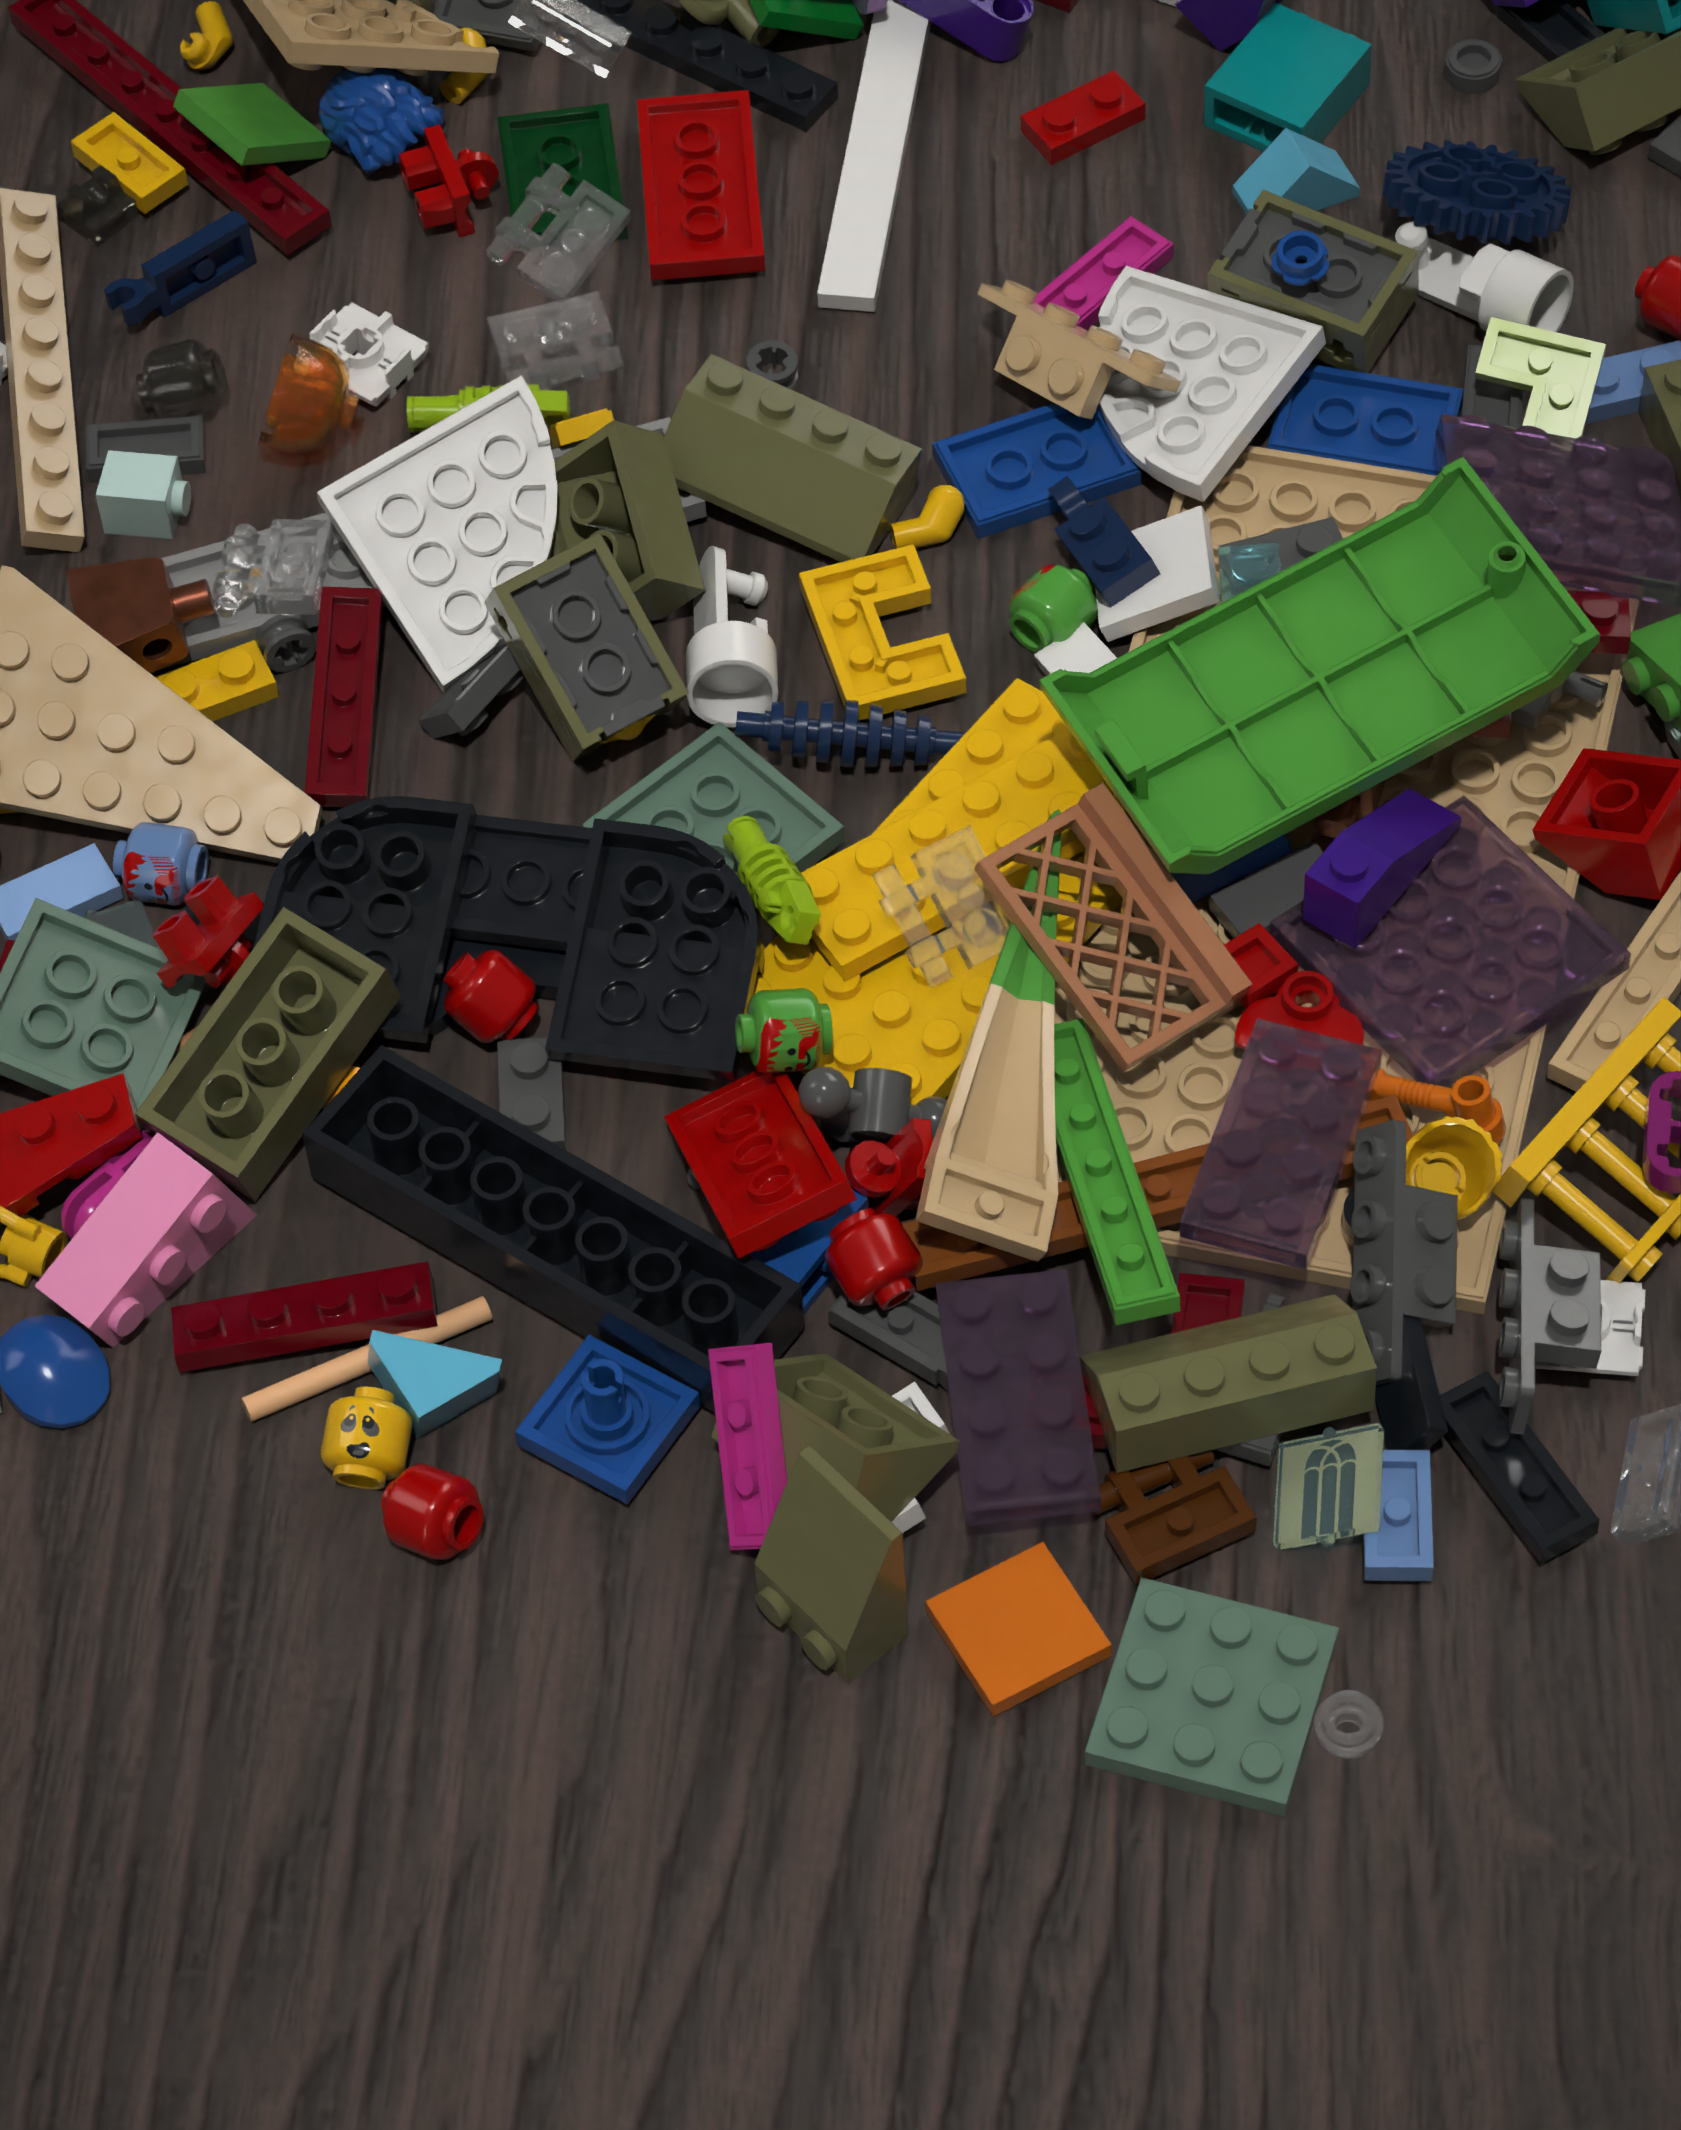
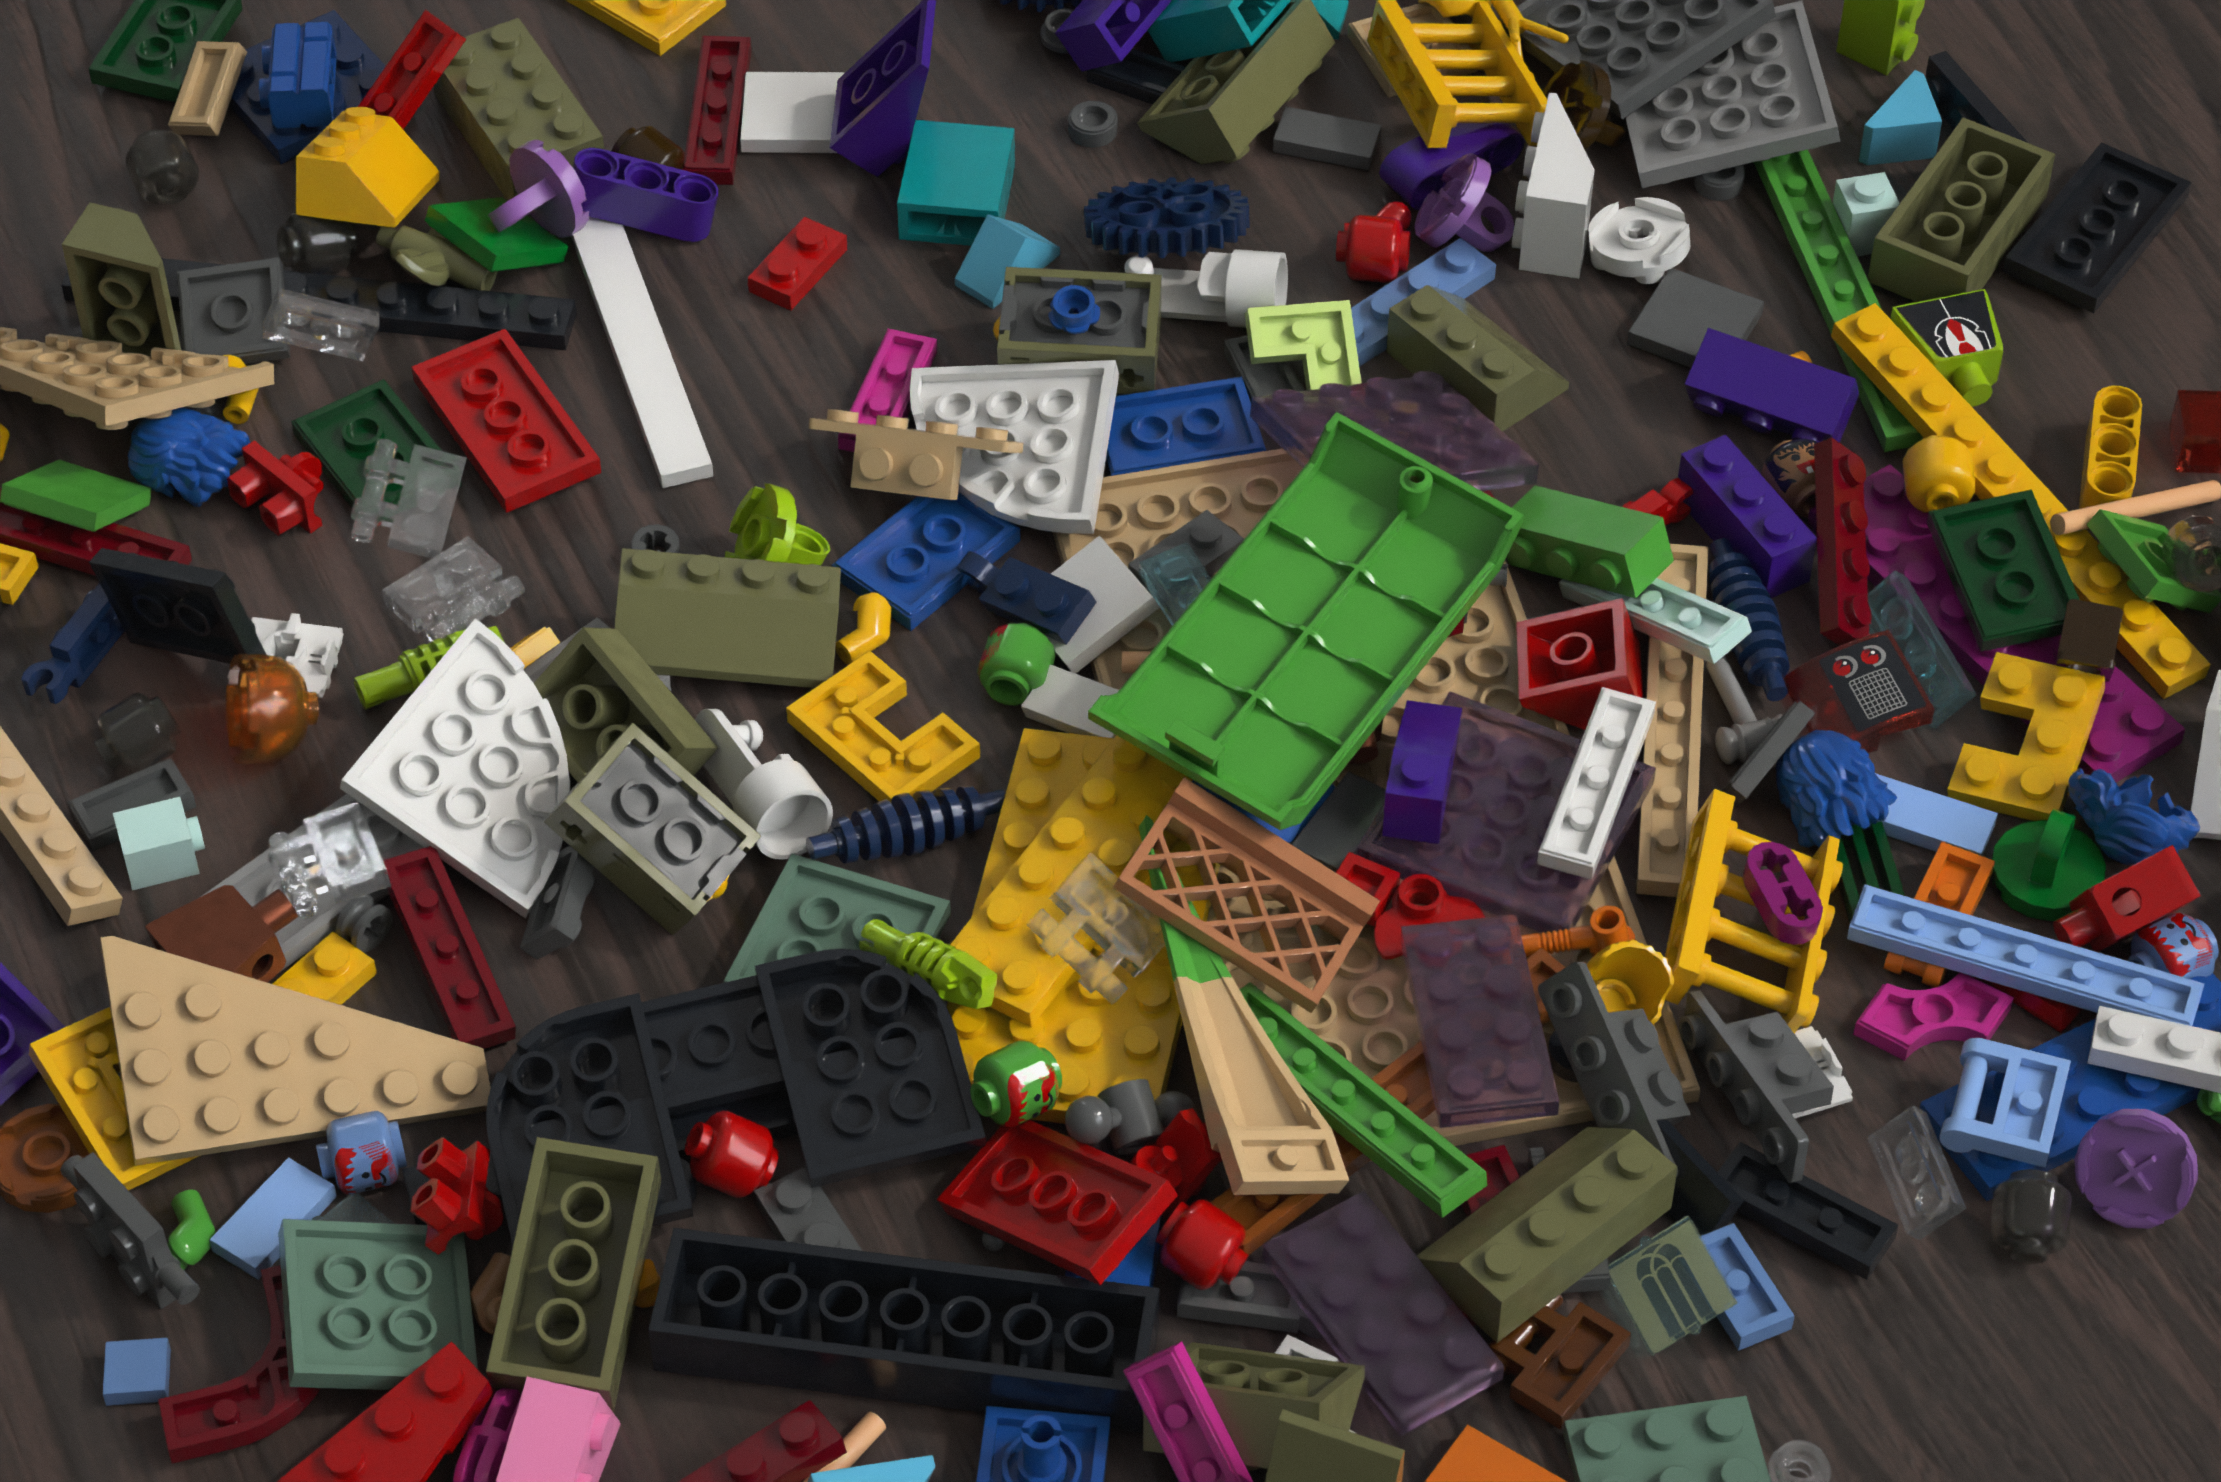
camera: 30 degrees left, 5 degrees down
(270, 266) = (176, 606): none -> black plate
(881, 394) = (770, 530): none -> lime tile
(1554, 945) = (1596, 783): none -> white tile

